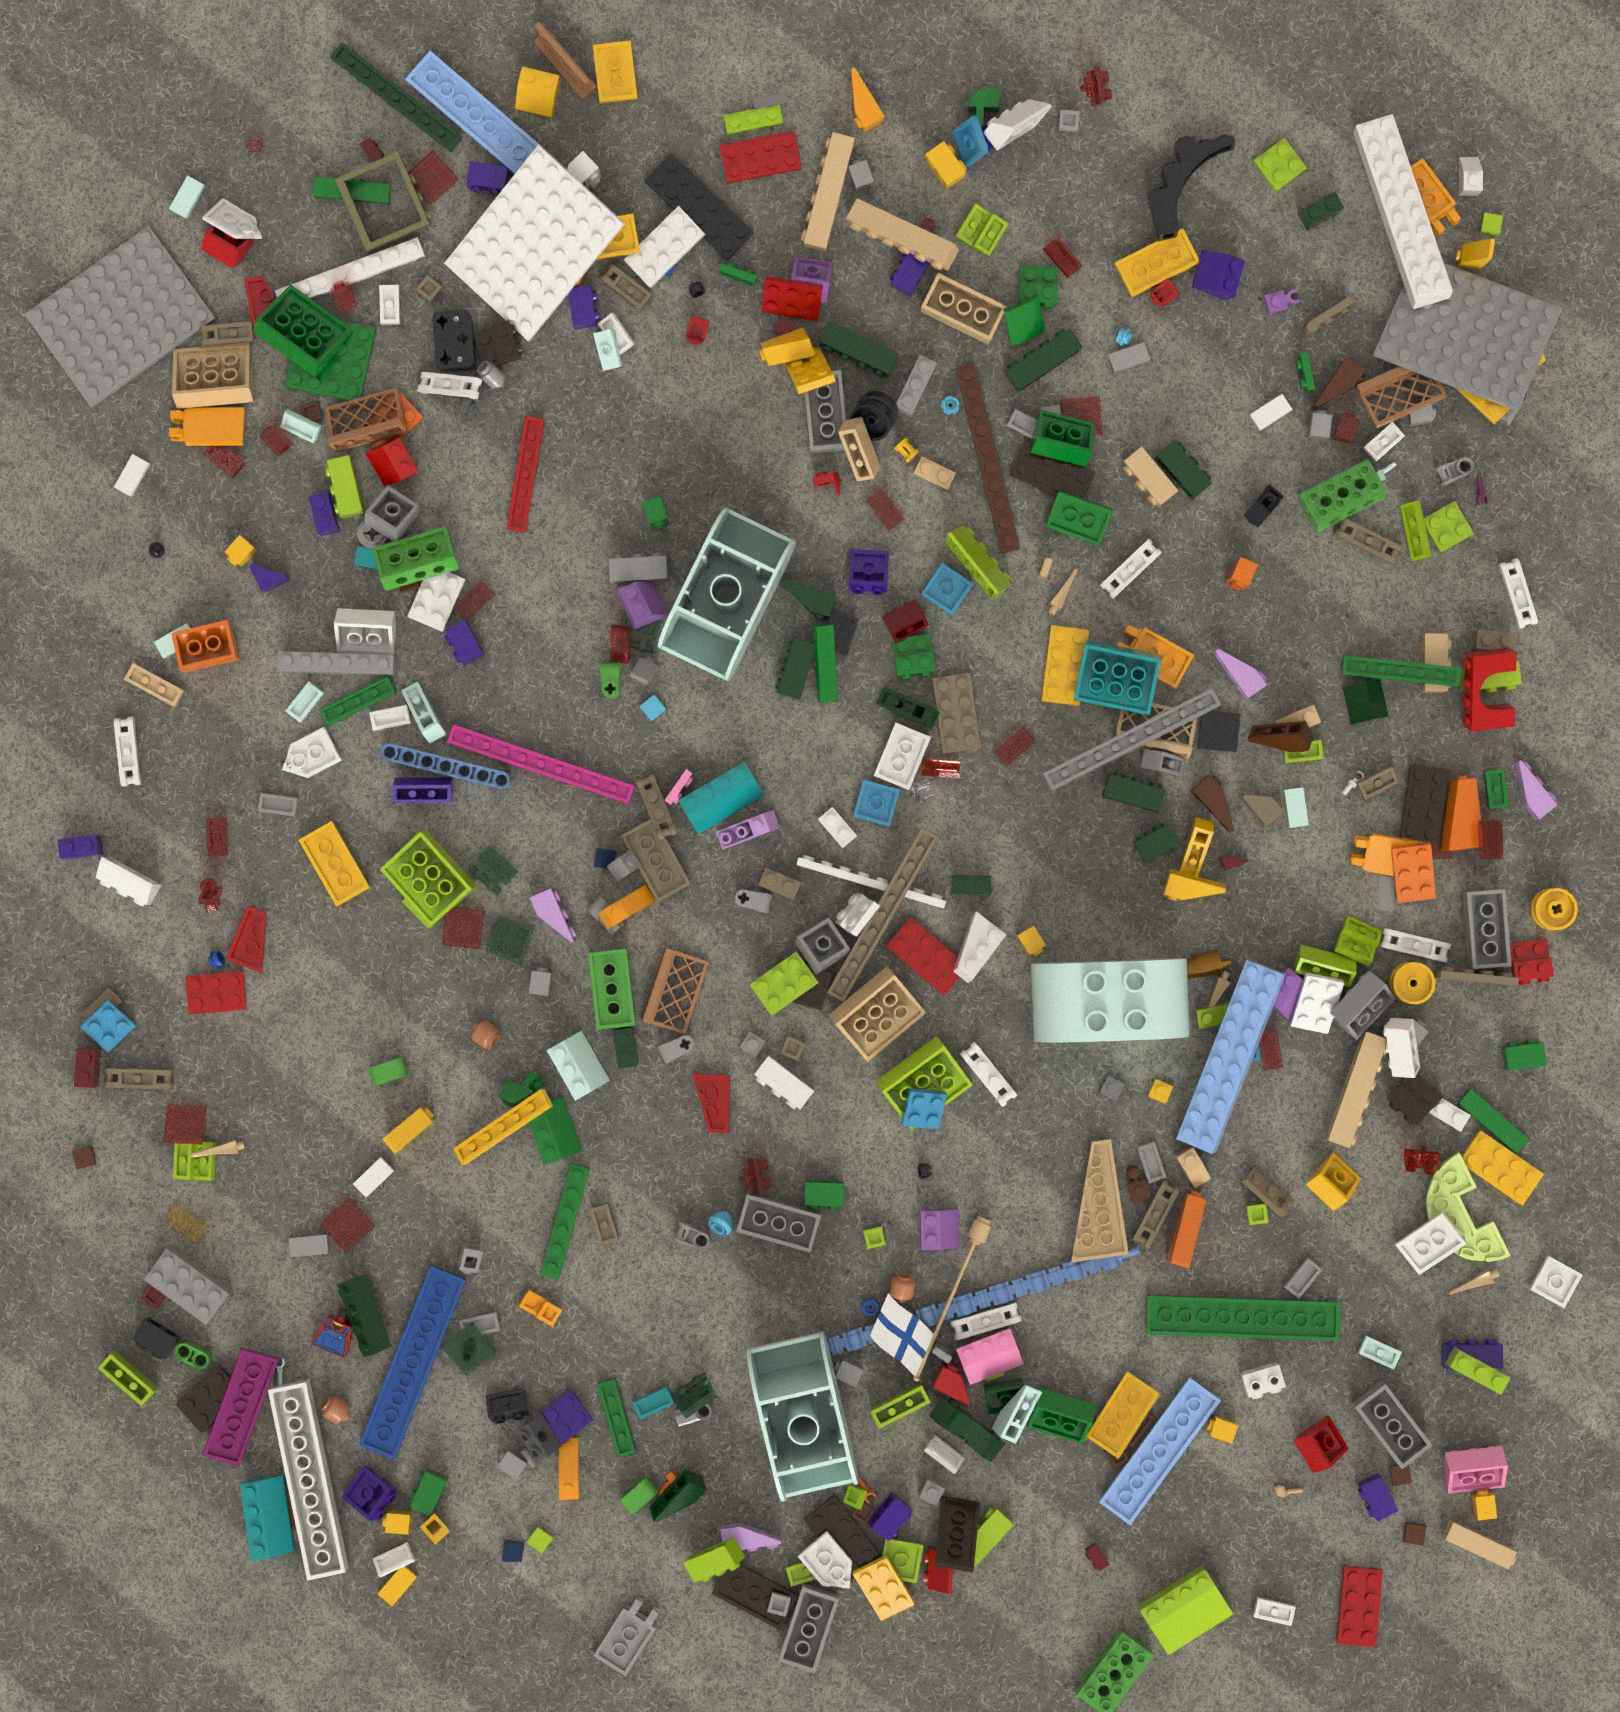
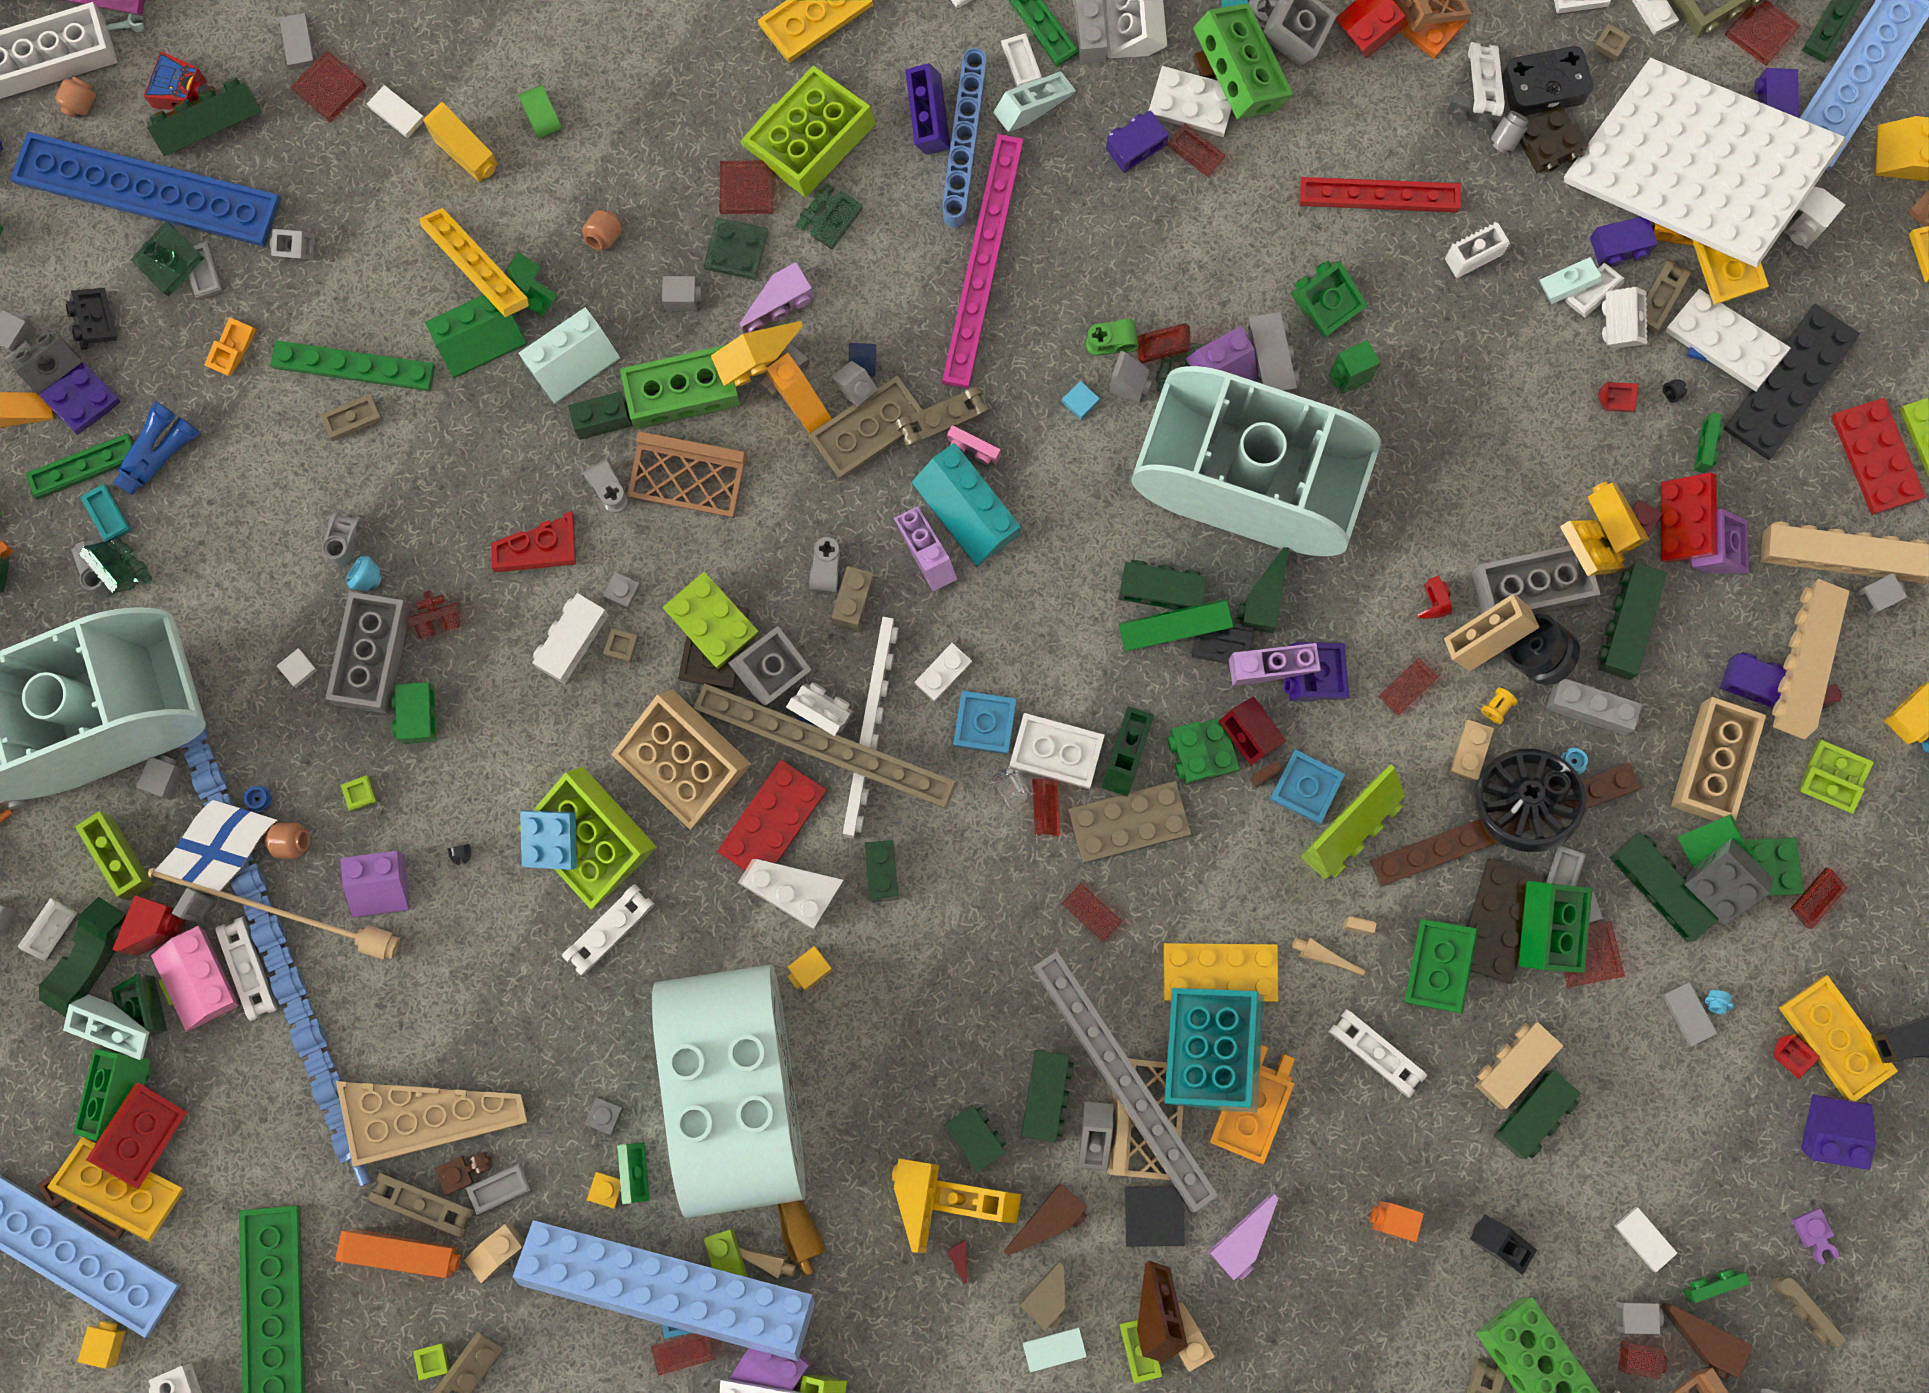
camera: 80 degrees right, 10 degrees down
(578, 412) = (1477, 250): none -> white brick
(599, 522) = (1328, 297): none -> green plate
(600, 932) = (752, 353): none -> yellow slope
(604, 1359) = (143, 461): none -> blue piece
(642, 316) = (1625, 317): none -> white brick
(781, 1274) = (297, 668): none -> white tile
(862, 600) = (1273, 664): none -> lavender slope
(935, 615) = (1266, 774): none -> reddish brown tile
(980, 444) = (1531, 799): none -> black piece
(1047, 318) = (1729, 881): none -> dark grey brick
(1091, 1397) = (136, 1136): none -> red plate
(1152, 1071) = (633, 1173): none -> green plate

